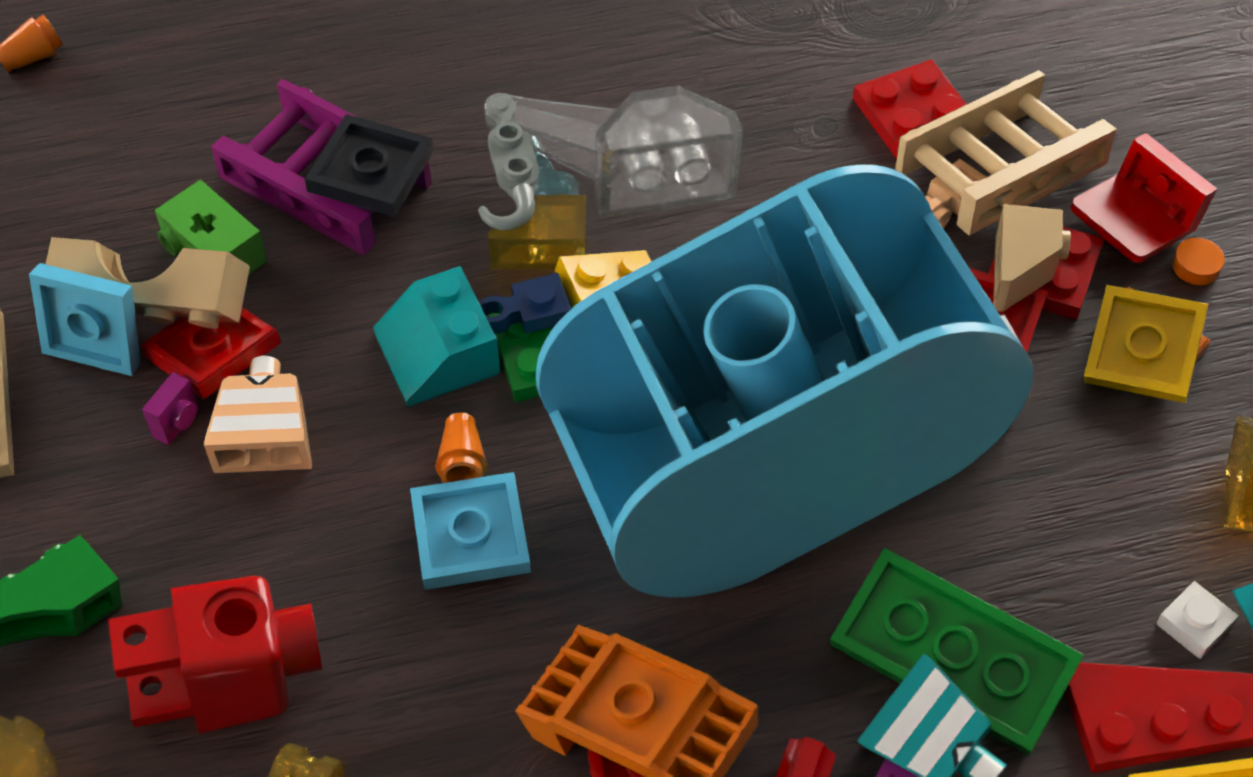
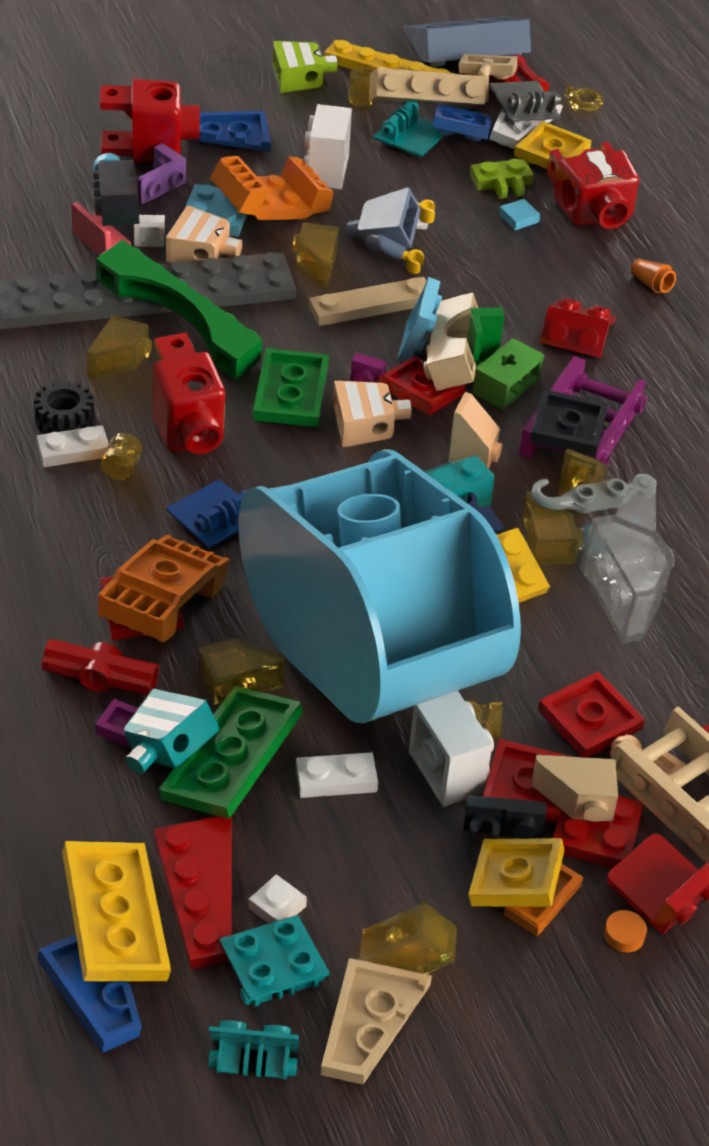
camera: 80 degrees right, 10 degrees down
(124, 138) = (577, 327): none -> red bracket
(147, 244) = (485, 332): none -> green panel
(176, 517) = (291, 387): none -> green plate
(355, 290) = (474, 433): none -> light nougat slope
(448, 649) = (210, 513): none -> blue hinge
(461, 179) = (580, 470): none -> clear yellow slope
(796, 638) = (240, 665): none -> clear yellow slope
(975, 532) = (336, 775): none -> white plate
(1051, 367) = (505, 817): none -> black plate

